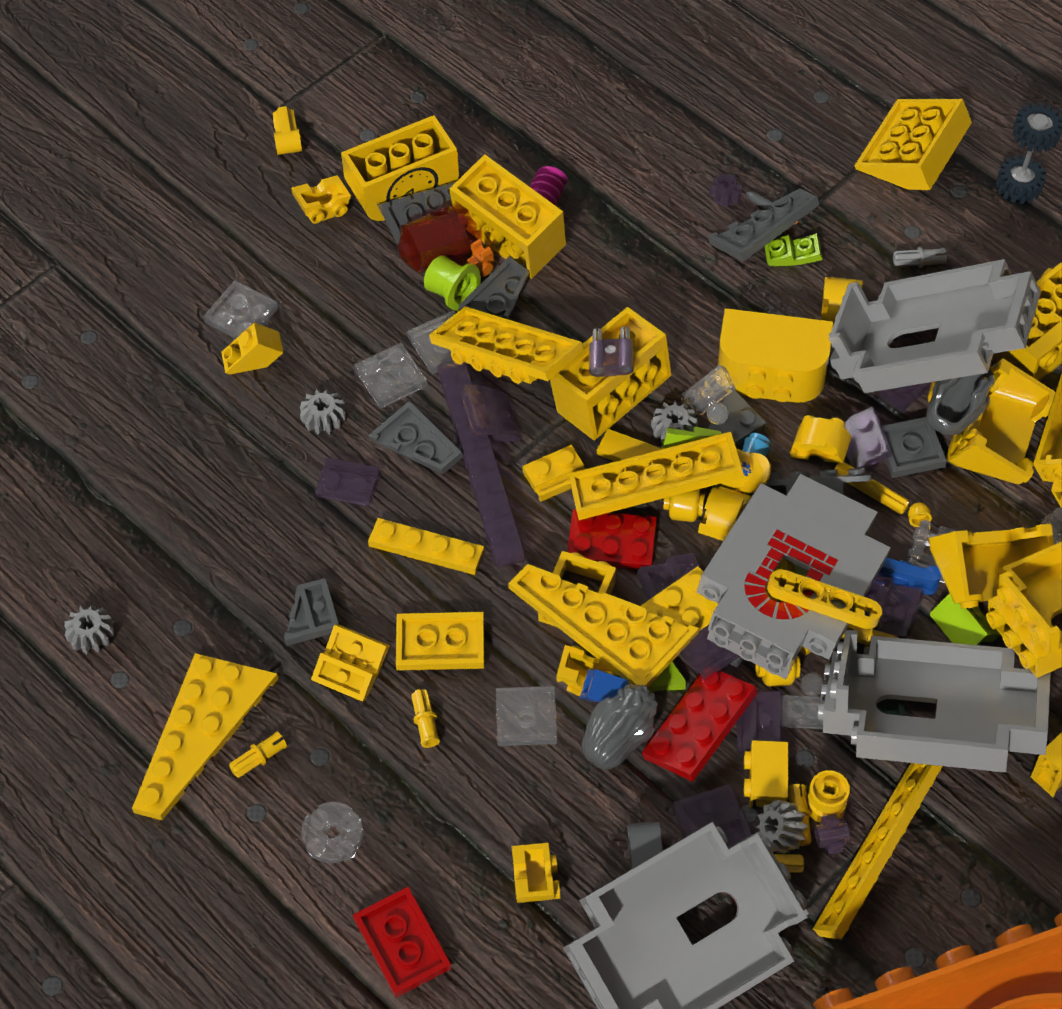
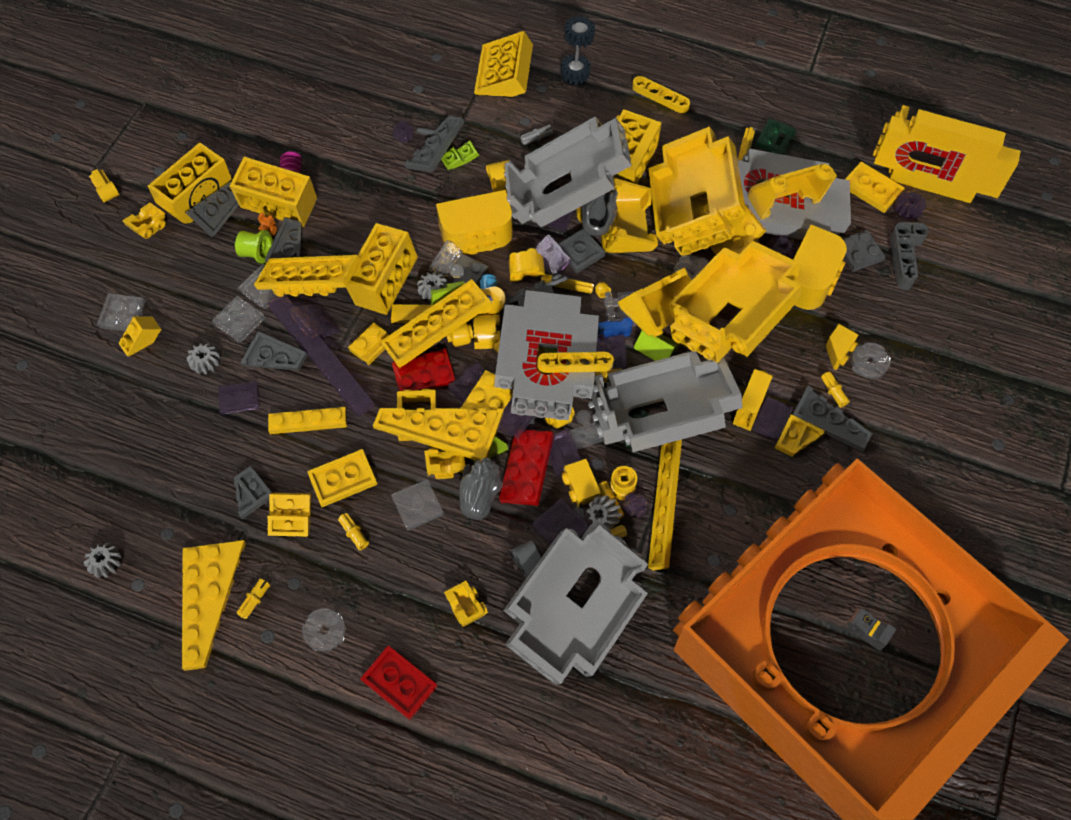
camera: 25 degrees left, 5 degrees up
(434, 236) = (230, 220): clear red cylinder -> none
(601, 685) = (458, 468): blue panel -> none
(611, 356) = (379, 257): piece -> none

